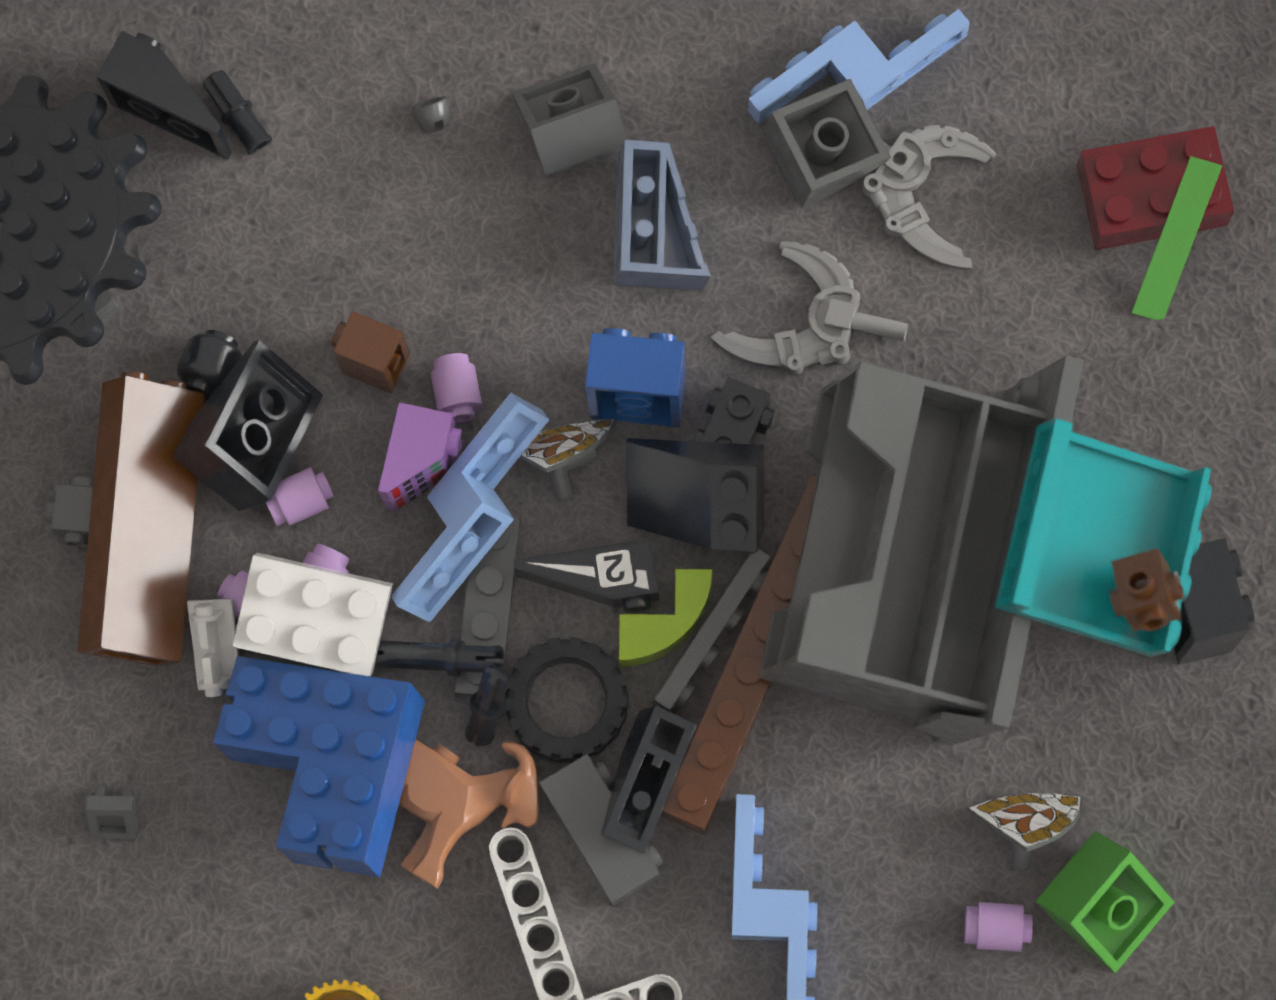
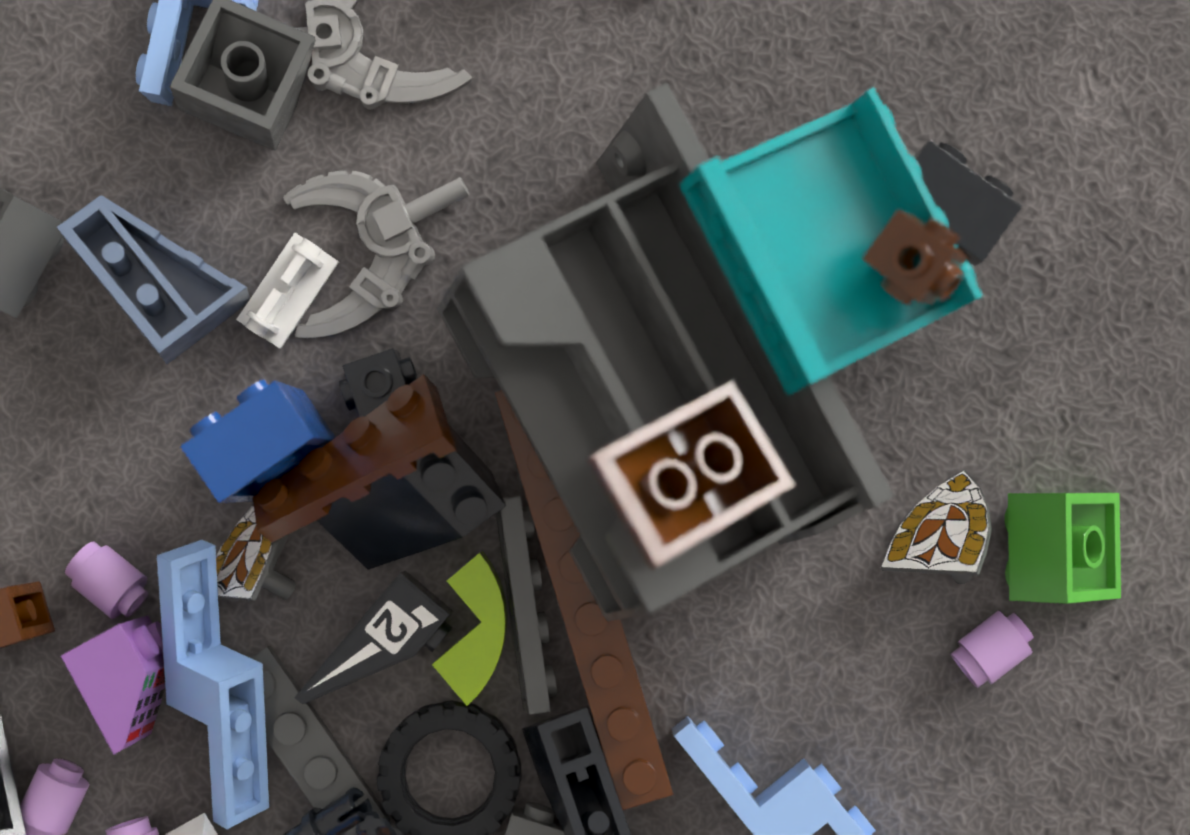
camera: 50 degrees left, 10 degrees up
(678, 438) = (367, 450): none -> reddish brown wing
(732, 303) = (287, 290): none -> white hinge
(894, 596) = (691, 473): none -> reddish brown slope

